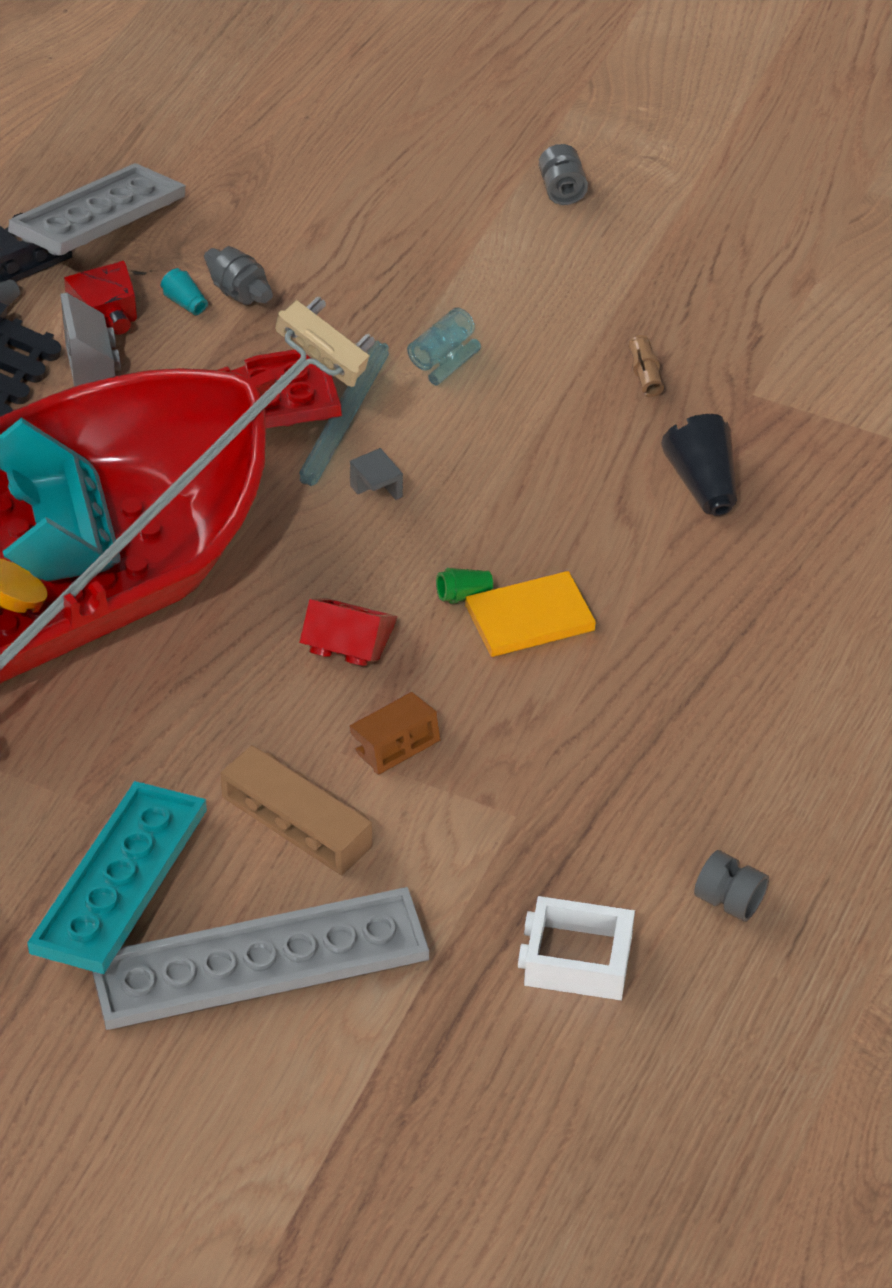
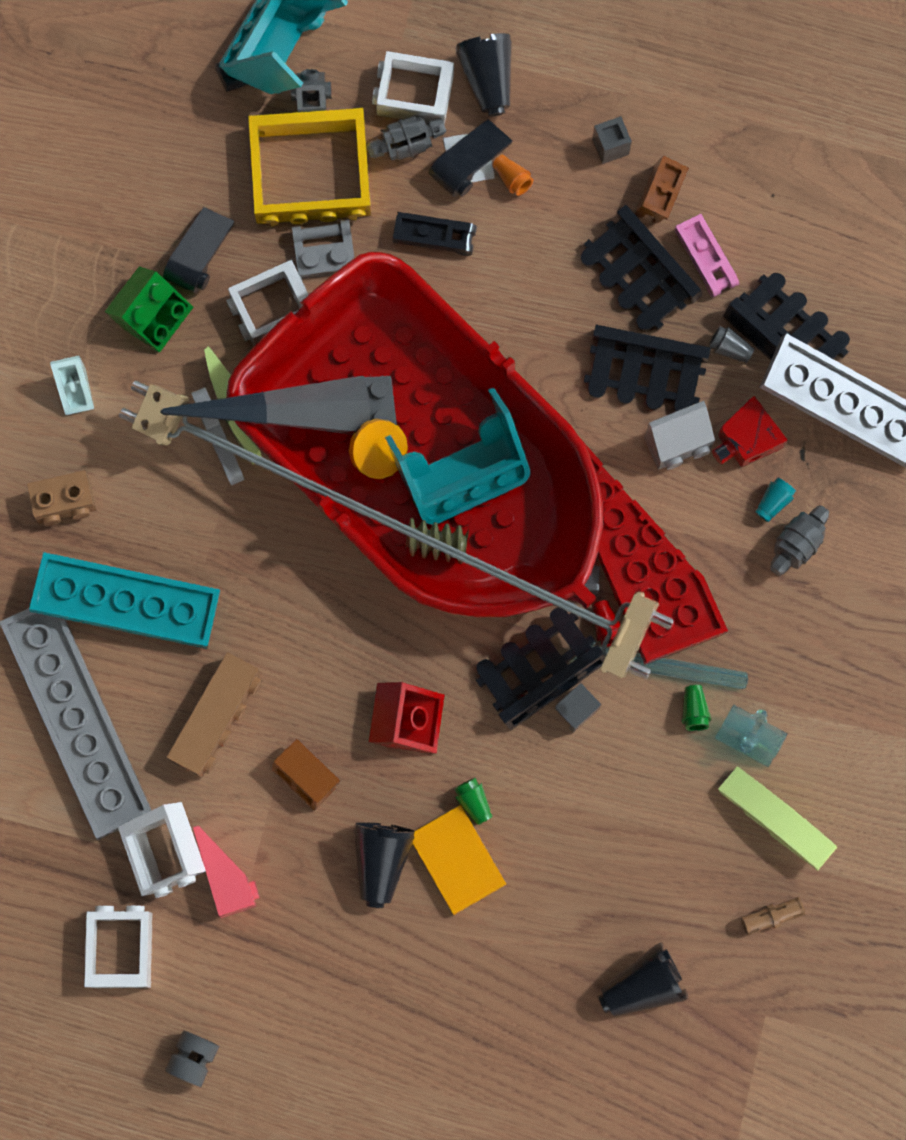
camera: 80 degrees right, 30 degrees up
(143, 554) = (454, 539): none -> olive piece
(288, 442) = (604, 610): none -> red cone
(333, 511) = (540, 692): none -> black fence
(403, 387) = (695, 709): none -> green cone
(419, 874) = (141, 855): none -> white window
(507, 826) = (227, 882): none -> coral slope
(519, 668) = (380, 860): none -> black cone
(541, 339) = (777, 818): none -> yellowish green slope

